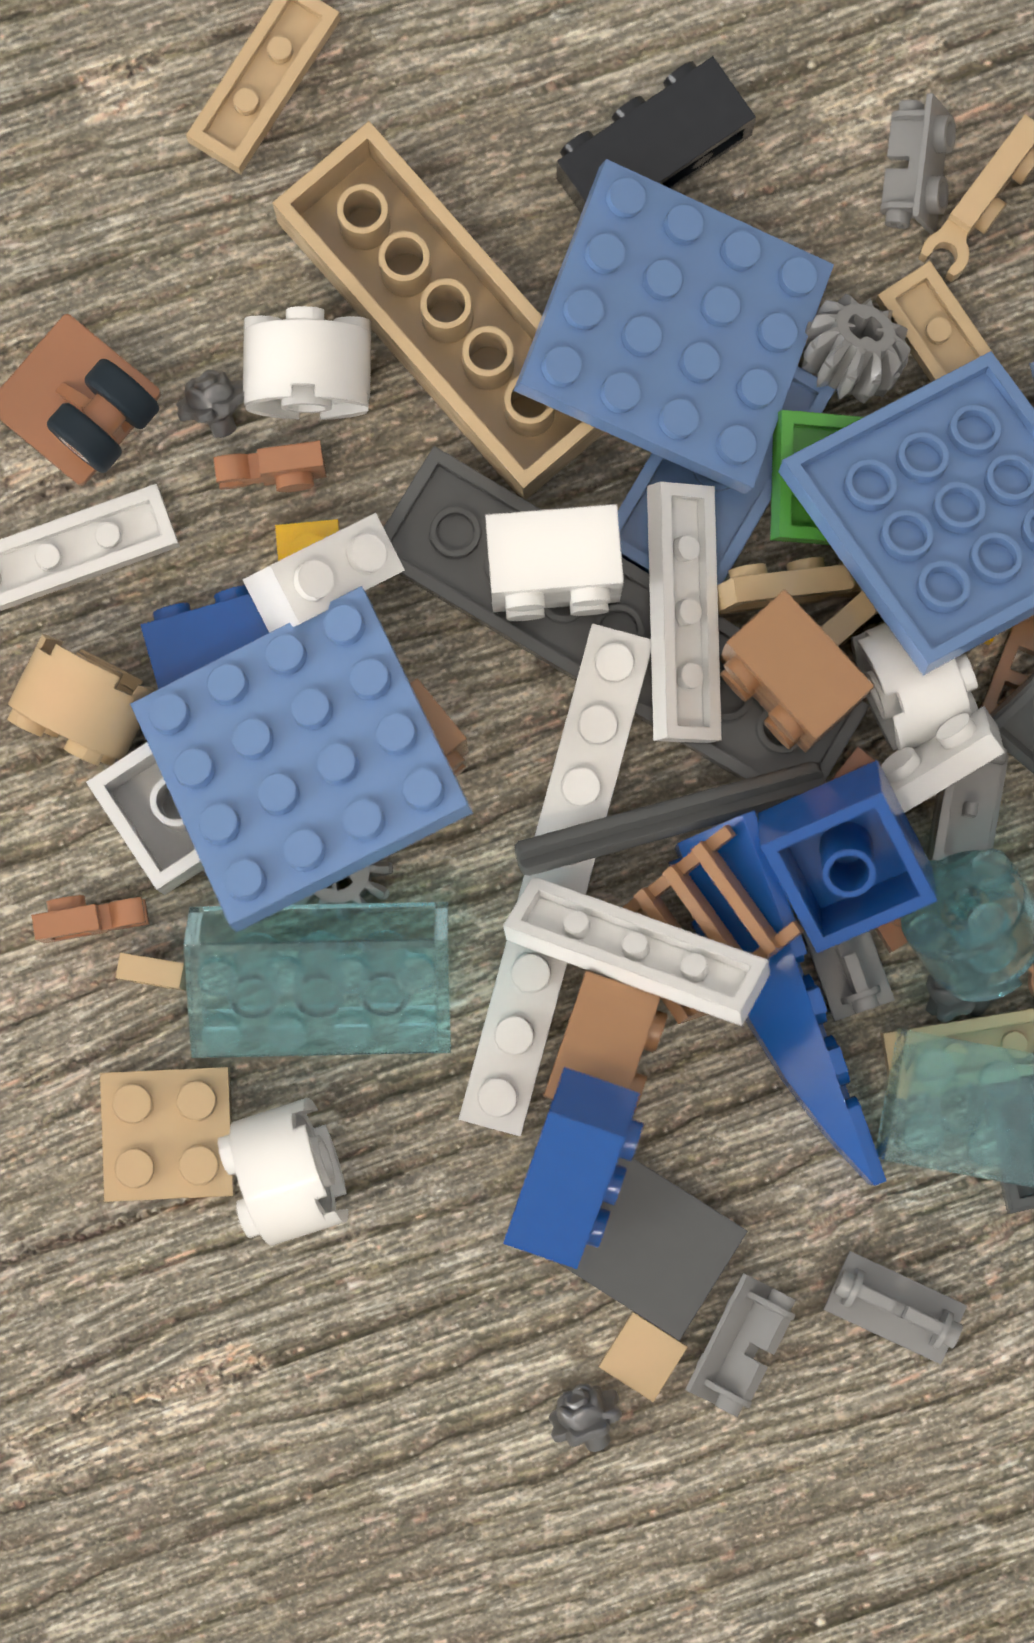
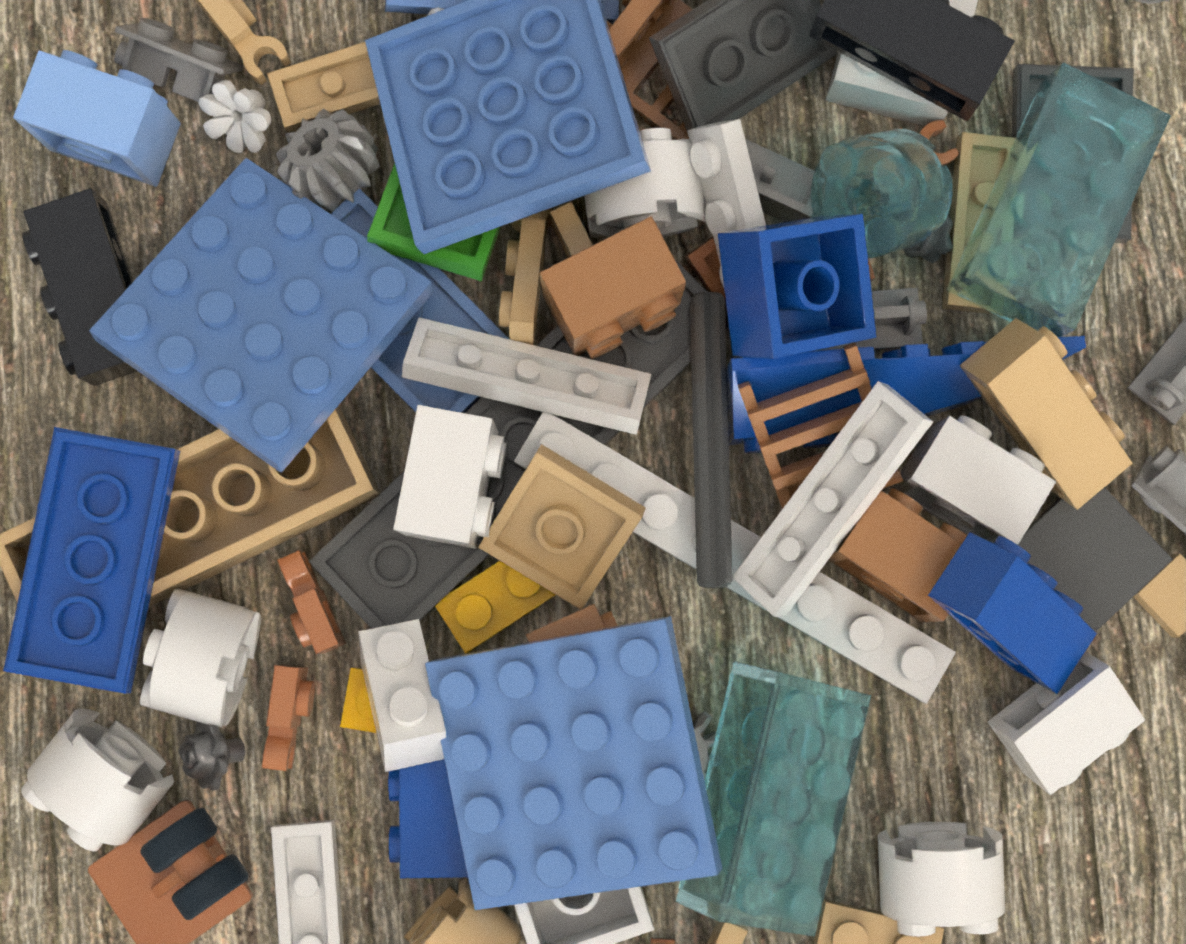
camera: 75 degrees left, 0 degrees up
(158, 297) = (97, 780): none -> white brick
(376, 229) = (92, 560): none -> blue tile
(378, 468) = (315, 619): none -> nougat plate
(451, 651) = (490, 604): none -> yellow plate
(473, 1271) = (1065, 732): none -> white brick
(537, 689) = (562, 527): none -> tan plate
(700, 1101) = (974, 481): none -> white brick
(794, 1160) = (1048, 410): none -> tan brick
(830, 104) = (98, 116): none -> light blue brick
(876, 242) = (237, 115): none -> white plant

